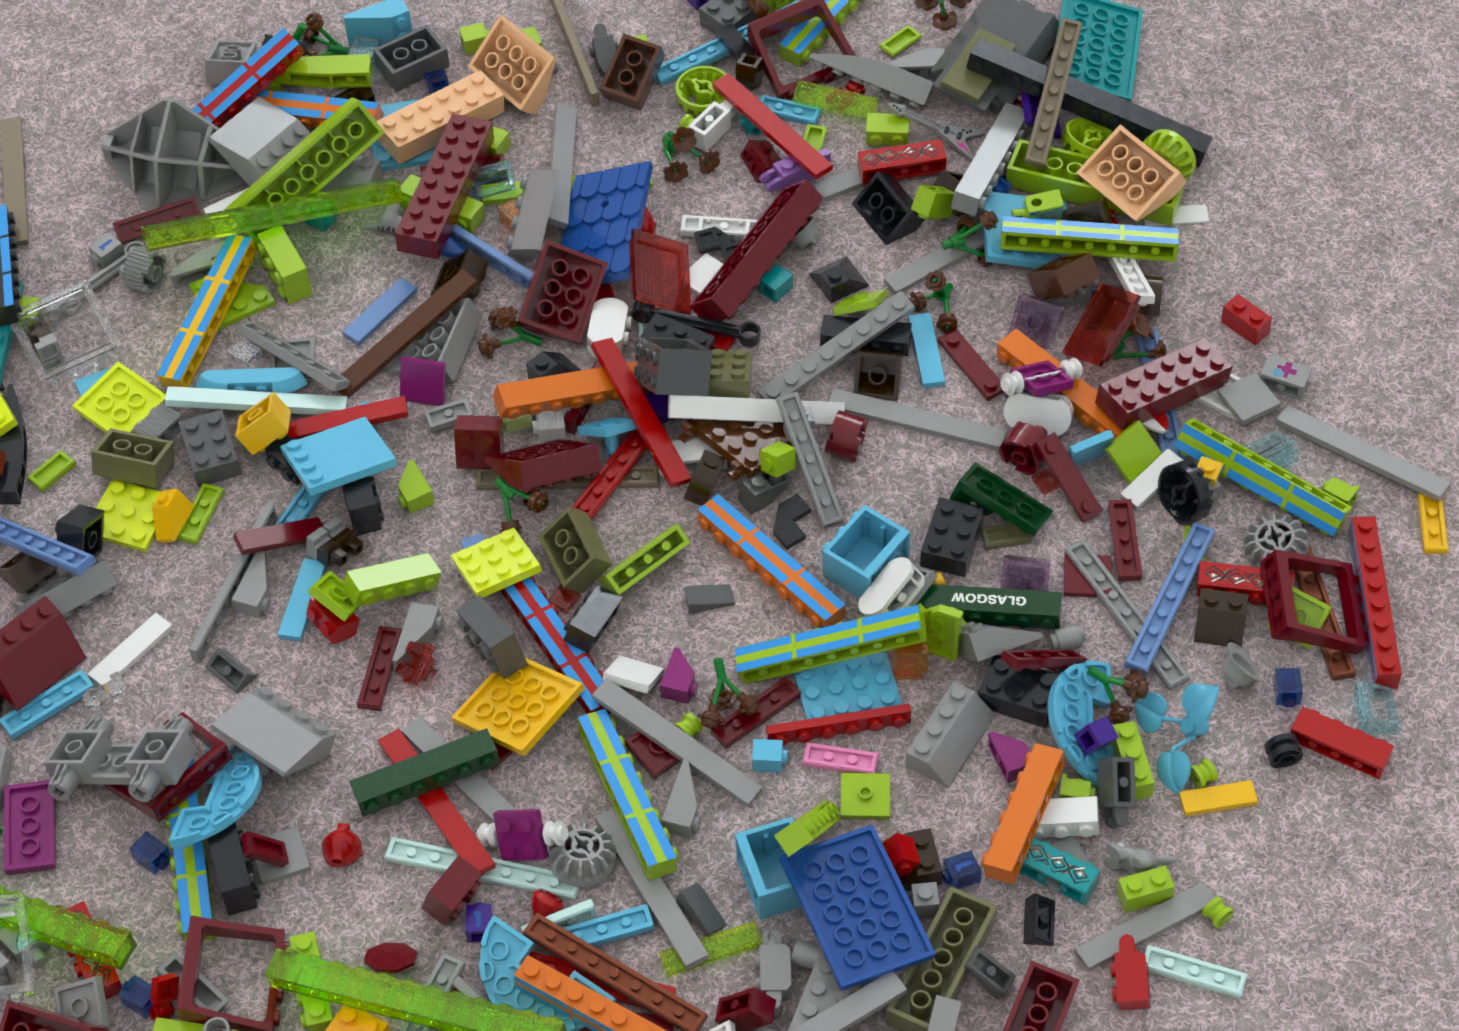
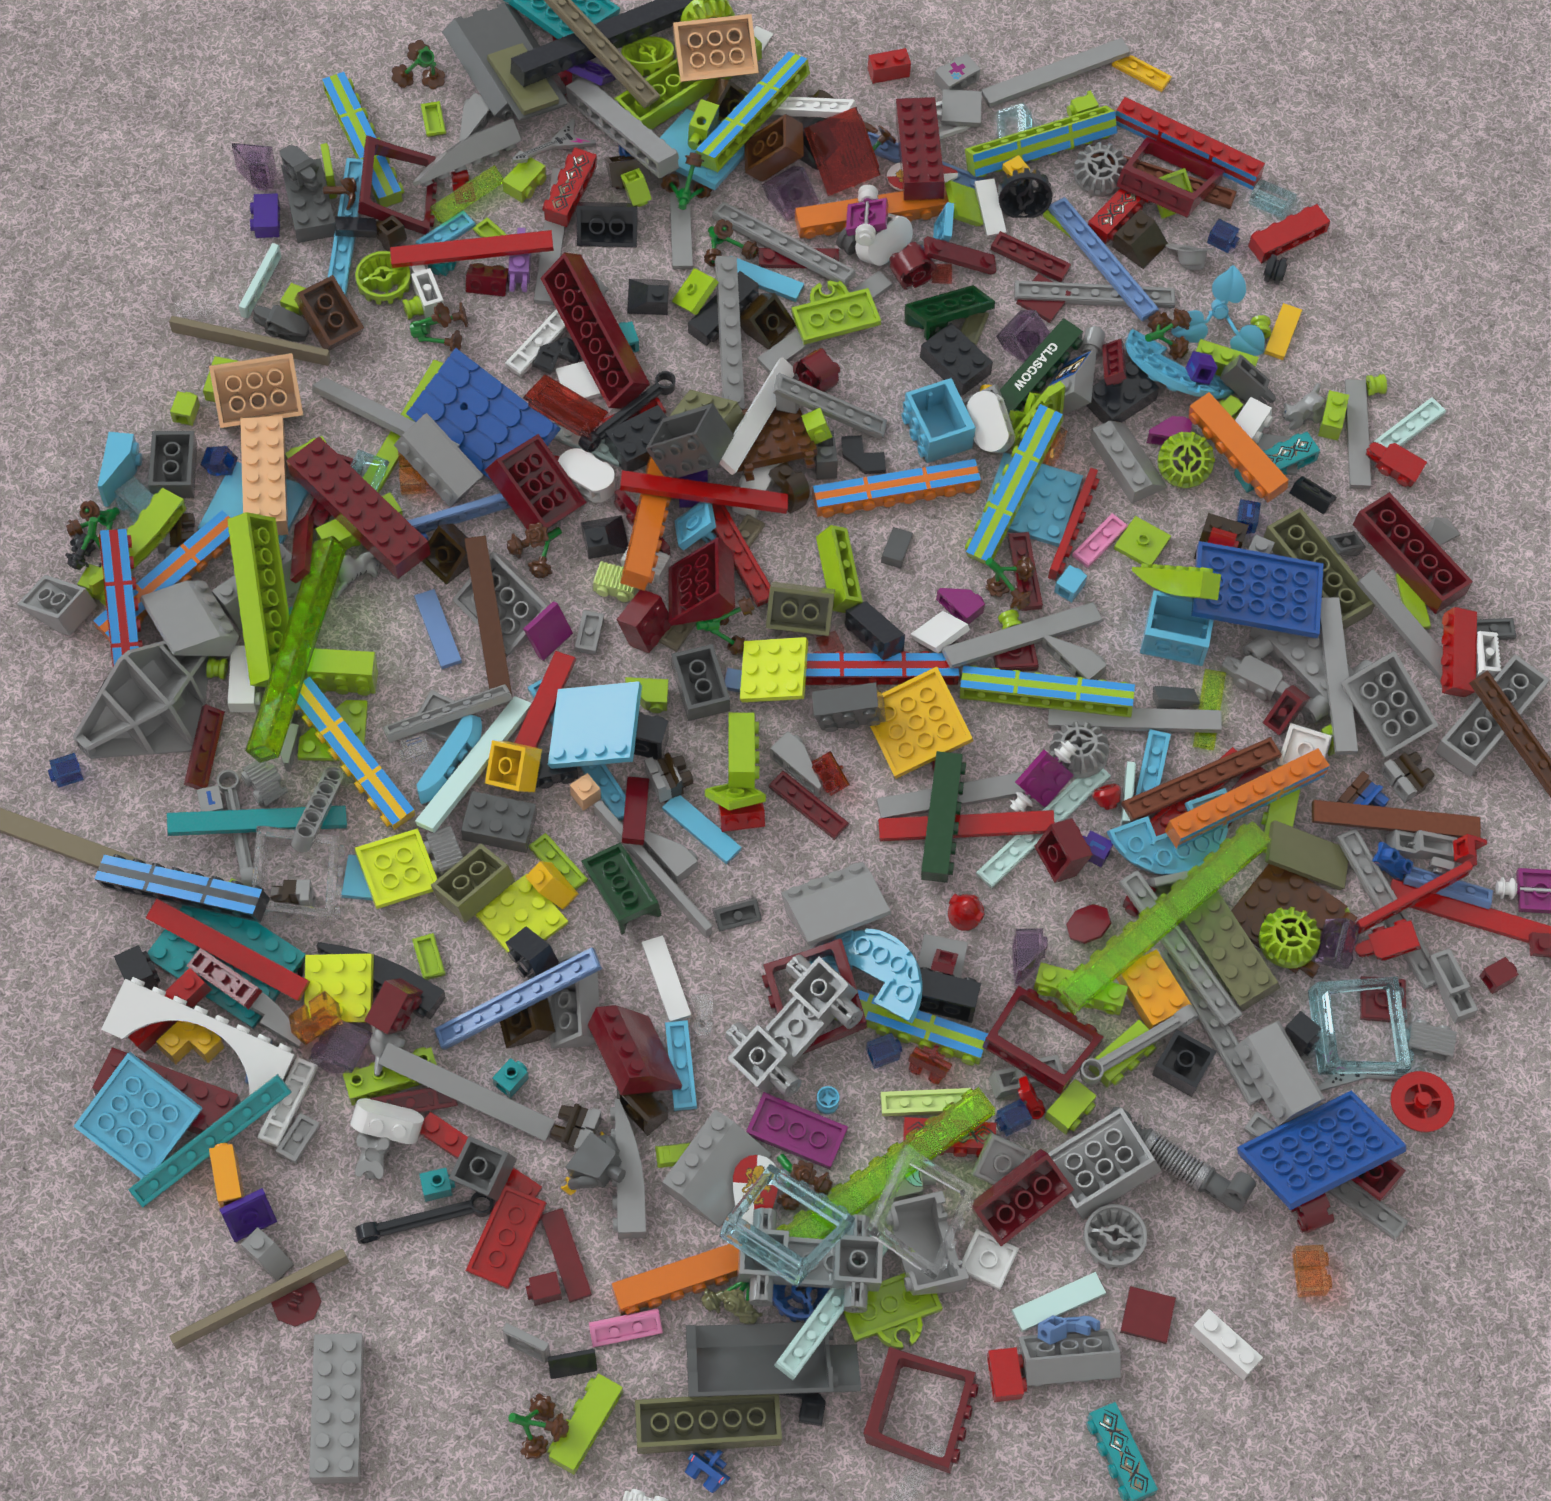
camera: 65 degrees left, 10 degrees up
(73, 834) = (827, 1095): none -> medium azure wheel
(79, 147) = (65, 770): none -> clear blue brick
(106, 287) = (246, 820): none -> teal tile
(116, 912) = (918, 1101): none -> yellowish green plate
(133, 314) = (317, 809): none -> light grey beam
(157, 897) = (930, 1060): none -> clear red hips
(195, 565) = (621, 885): none -> dark green plate
(236, 184) = (217, 668): none -> lime wheel
(279, 491) = (585, 791): none -> light nougat brick
(317, 913) = (1027, 952): none -> clear purple slope
(384, 174) = (302, 548): none -> dark red tile
(447, 517) = (700, 682): none -> dark grey brick
(639, 17) = (260, 281): none -> light aqua tile
(925, 417) = (835, 313): none -> lime plate
(973, 344) = (784, 244): none -> light grey tile
(993, 791) = (1185, 478): none -> lime gear

